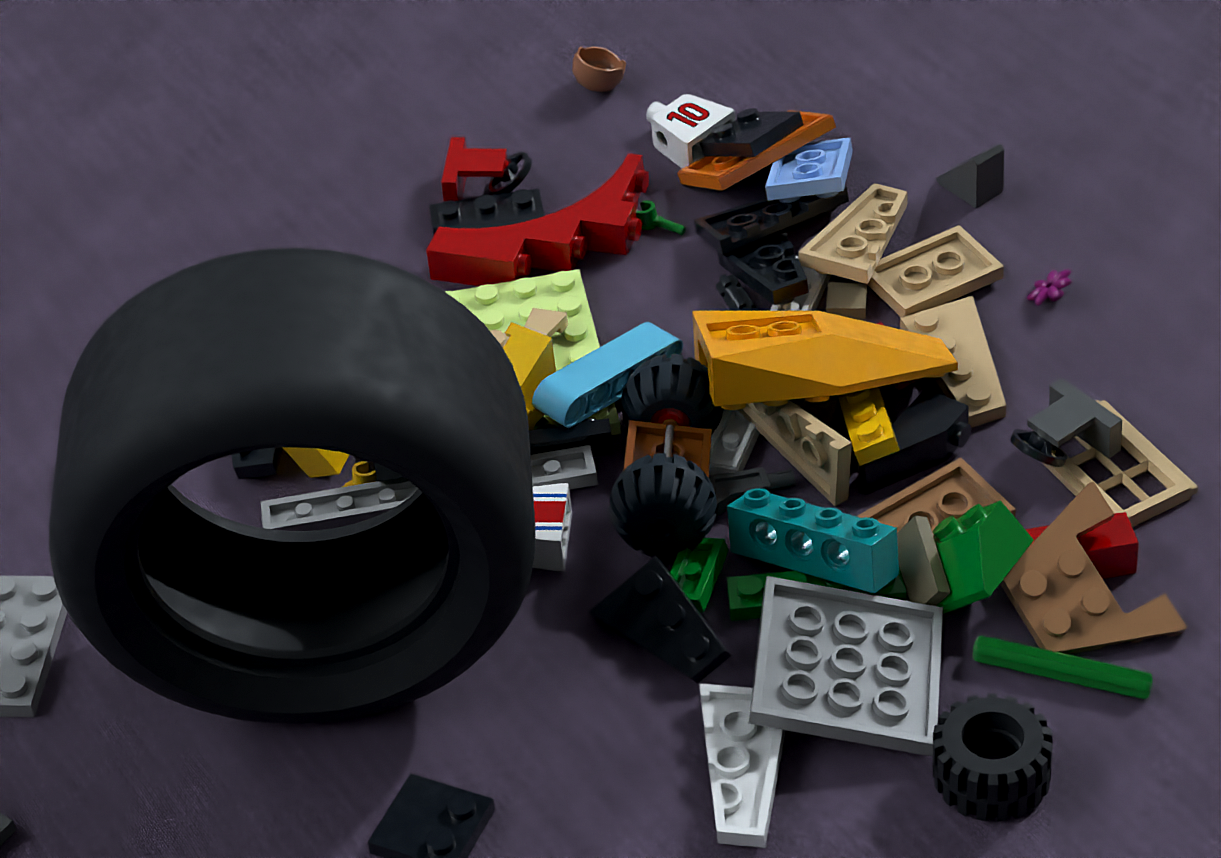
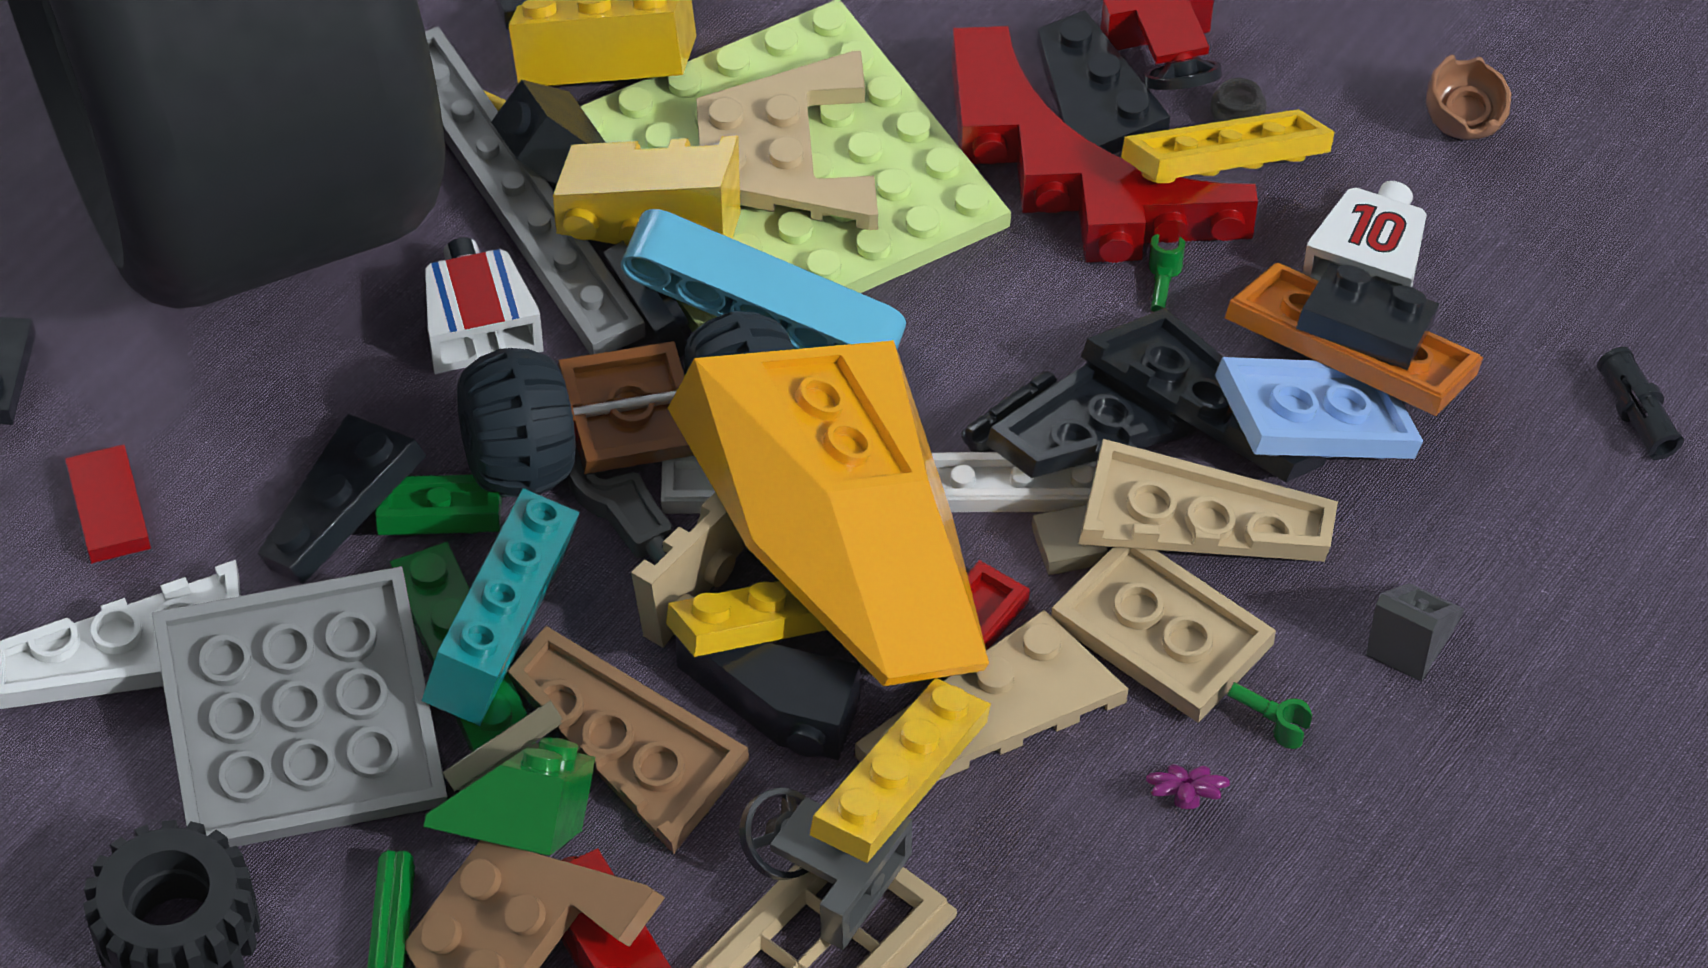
camera: 65 degrees right, 10 degrees up
(544, 160) = (1237, 100): none -> clear smoke plate
(591, 159) = (1226, 145): none -> yellow plate
(603, 757) = (108, 503): none -> red tile
(850, 63) = (1655, 429): none -> black pin
(1015, 243) = (1281, 714): none -> green hand
(1024, 375) = (900, 770): none -> yellow plate

